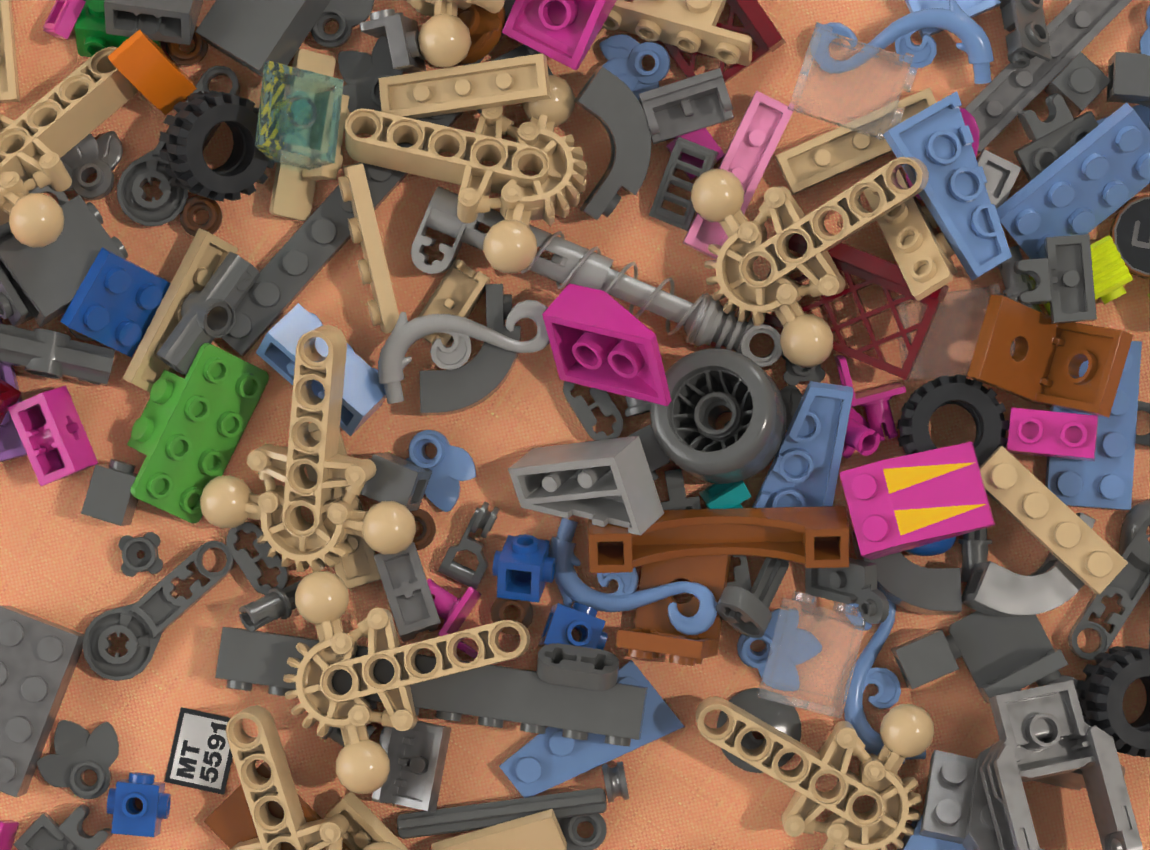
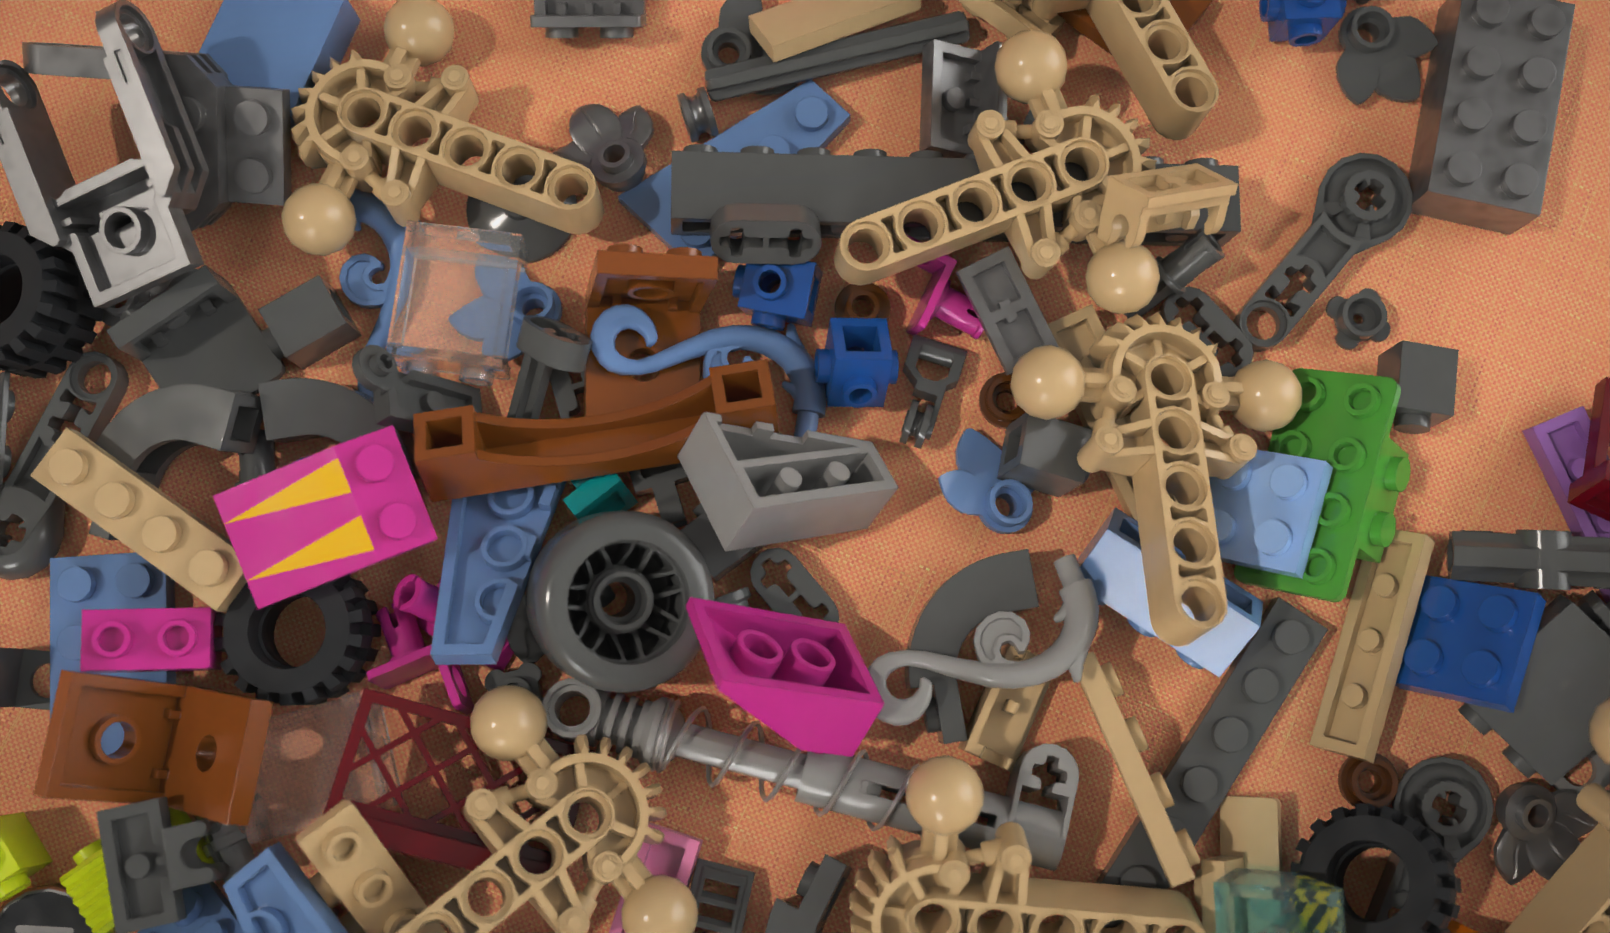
camera: 165 degrees right, 5 degrees down
(53, 435) = (1513, 451): dark pink brick -> none
(200, 752) = (1243, 89): sticker -> none
(219, 298) = (1325, 677): dark grey piece -> none
(243, 415) = (1270, 512): none -> light blue plate
(285, 648) = (1163, 201): none -> tan hinge
(691, 773) = (610, 144): none -> flat silver plate

